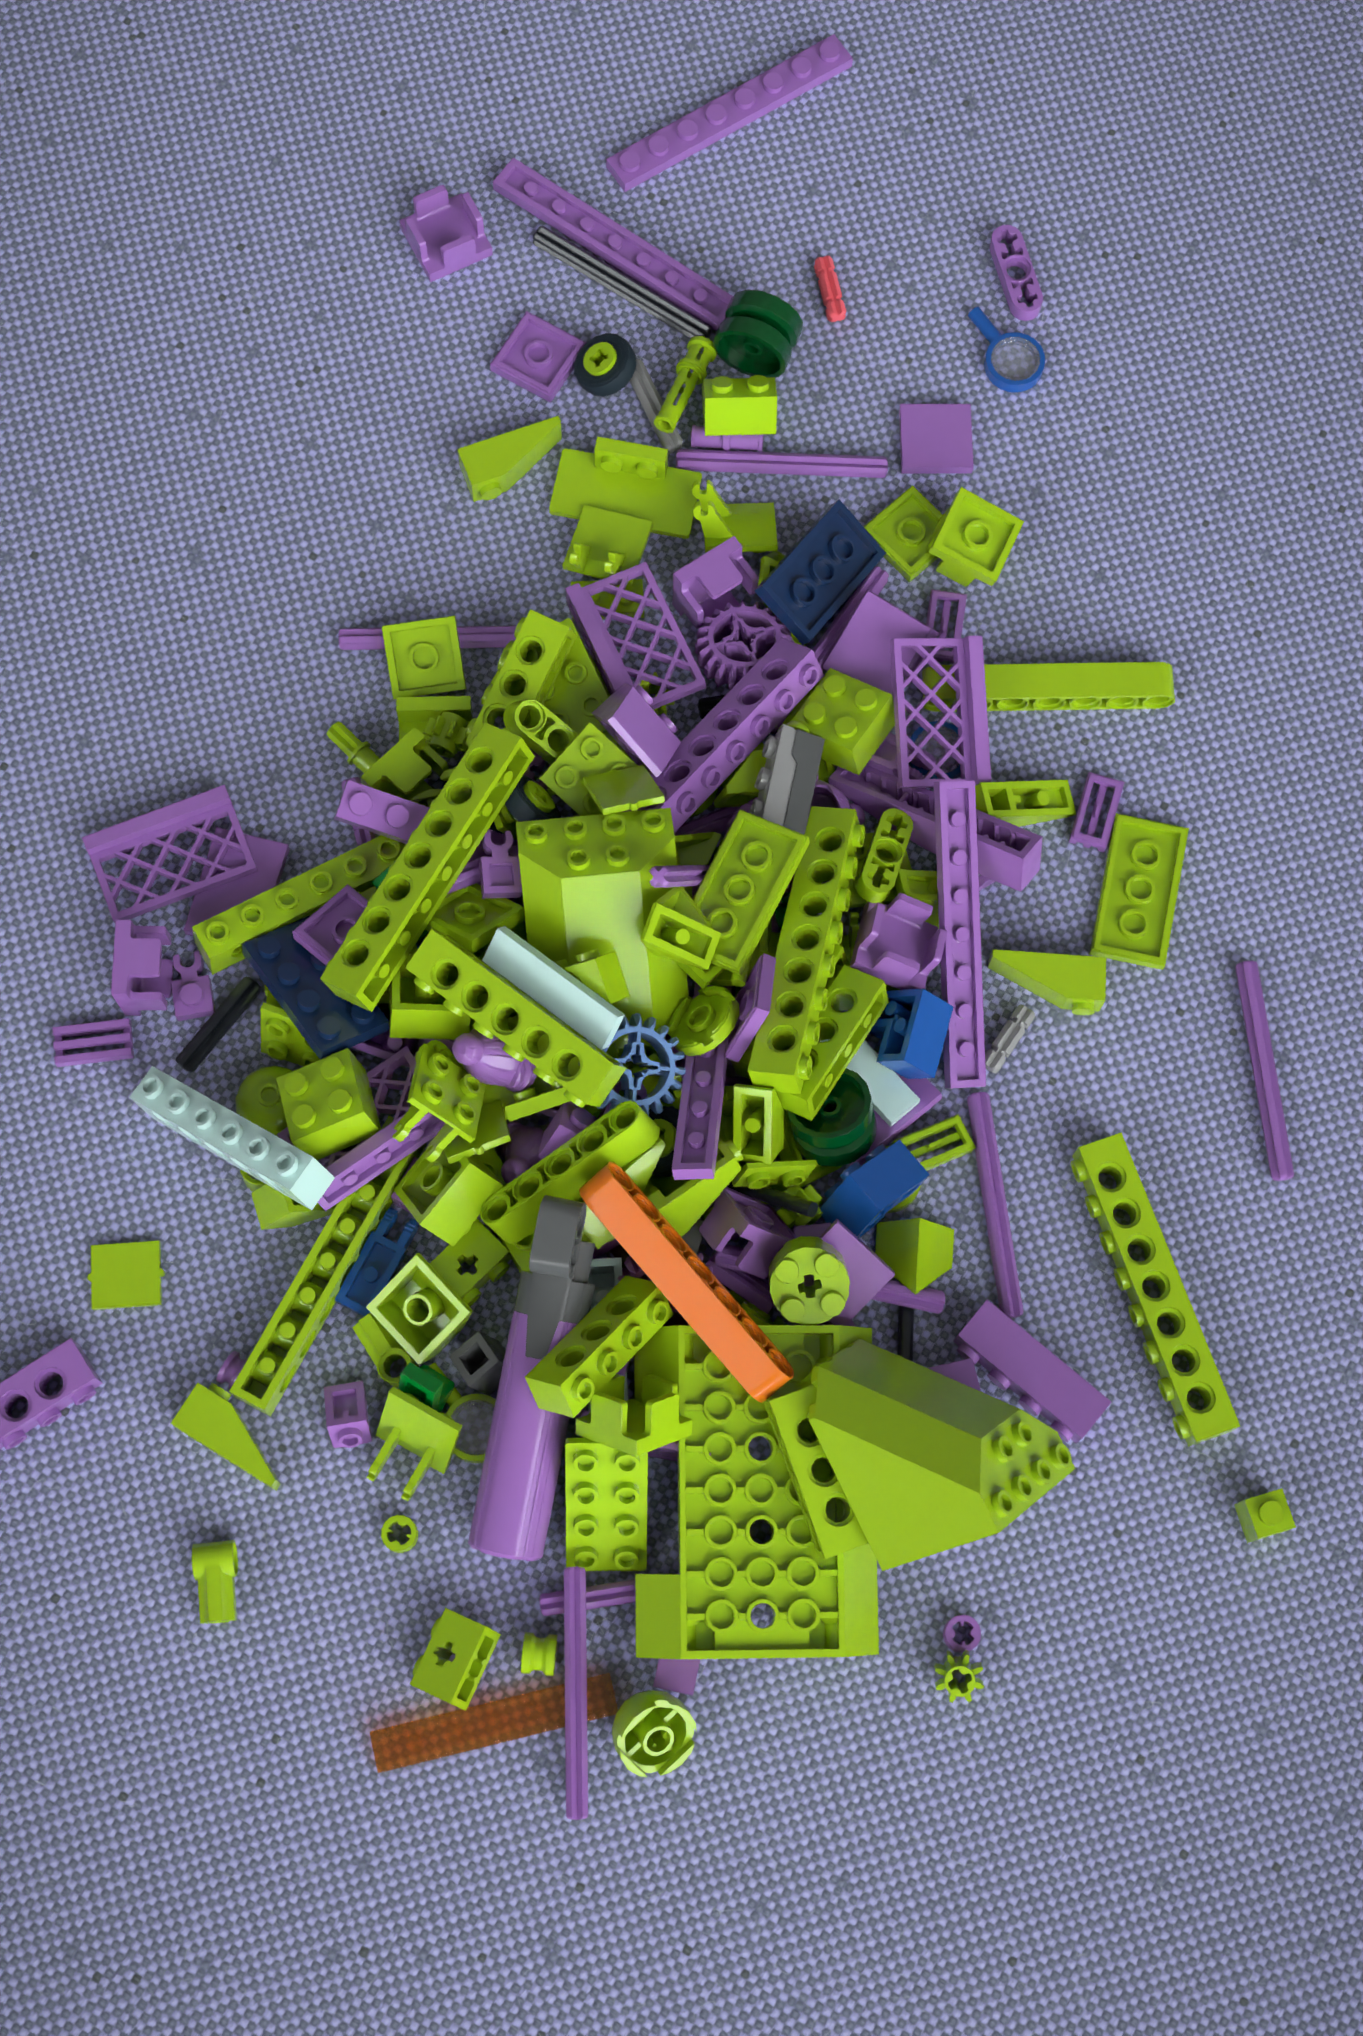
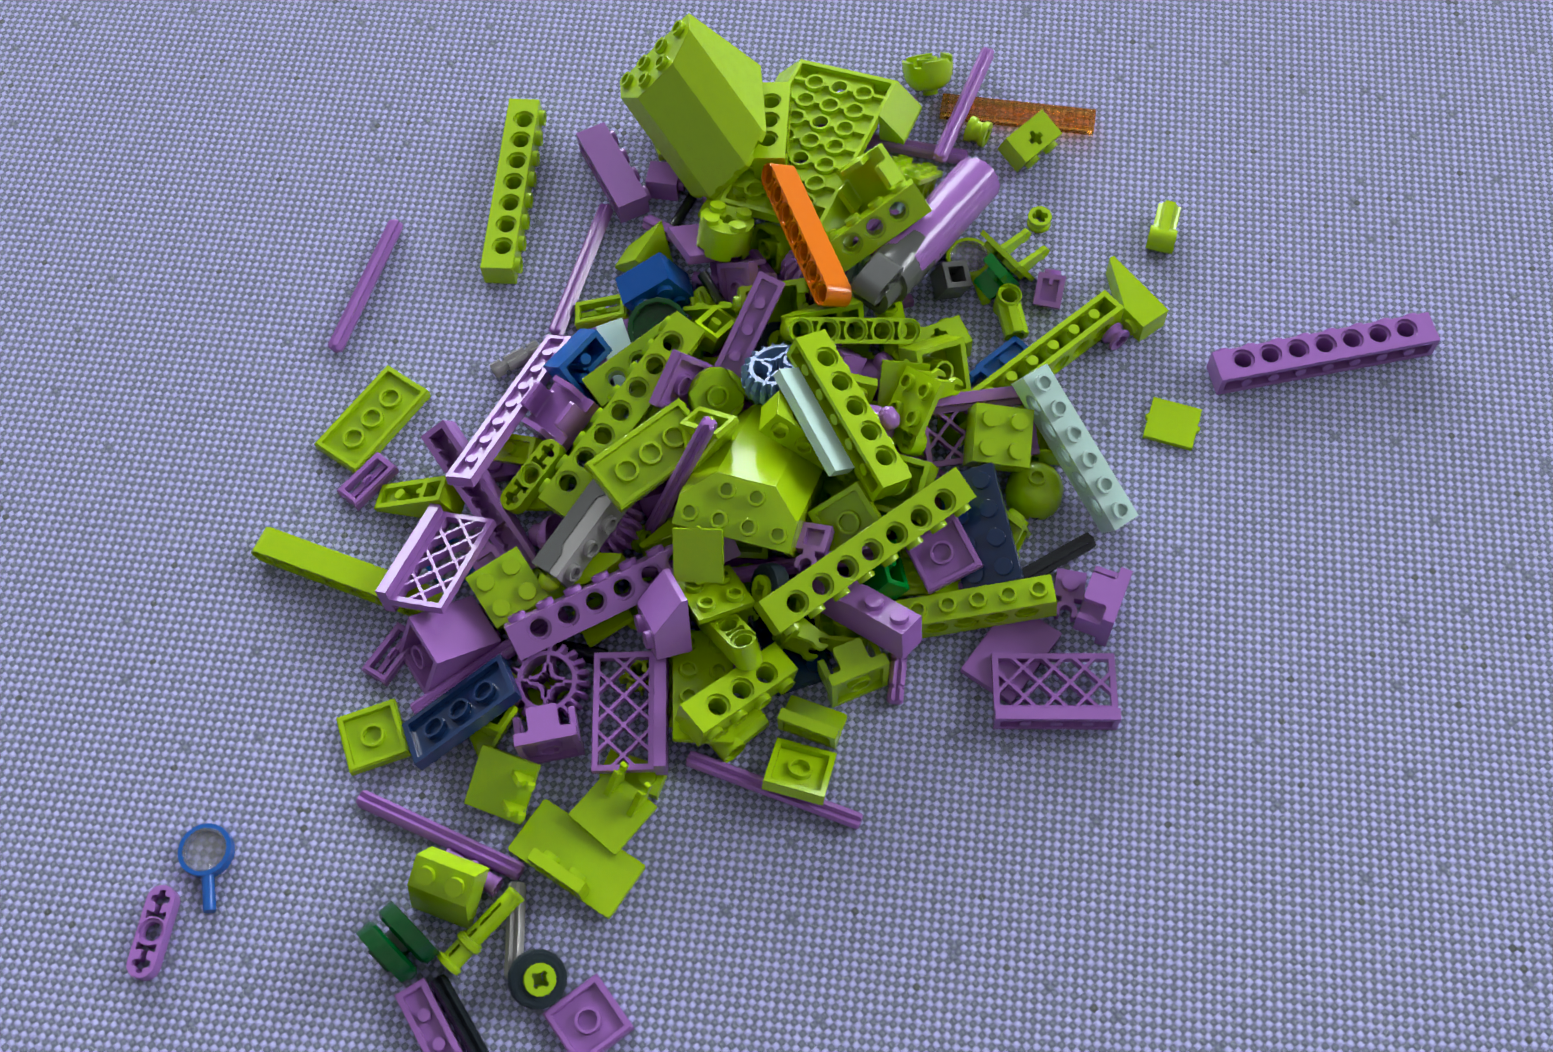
camera: 150 degrees left, 10 degrees down
(61, 1045) = (1156, 576): medium lavender tile -> none
(358, 753) = (880, 719): lime axle -> none
(420, 1310) = (982, 316): lime slope -> none
(446, 734) = (807, 698): lime gear -> none
(502, 460) = (665, 923): lime slope -> none
(830, 289) = (312, 982): coral axle -> none
(935, 438) = (307, 808): medium lavender tile -> none
(965, 1667) = (742, 40): lime gear -> none
(973, 539) = (332, 695): lime panel -> none
(1061, 979) = (455, 375): lime slope -> none
(1264, 1515) = (523, 61): lime brick -> none

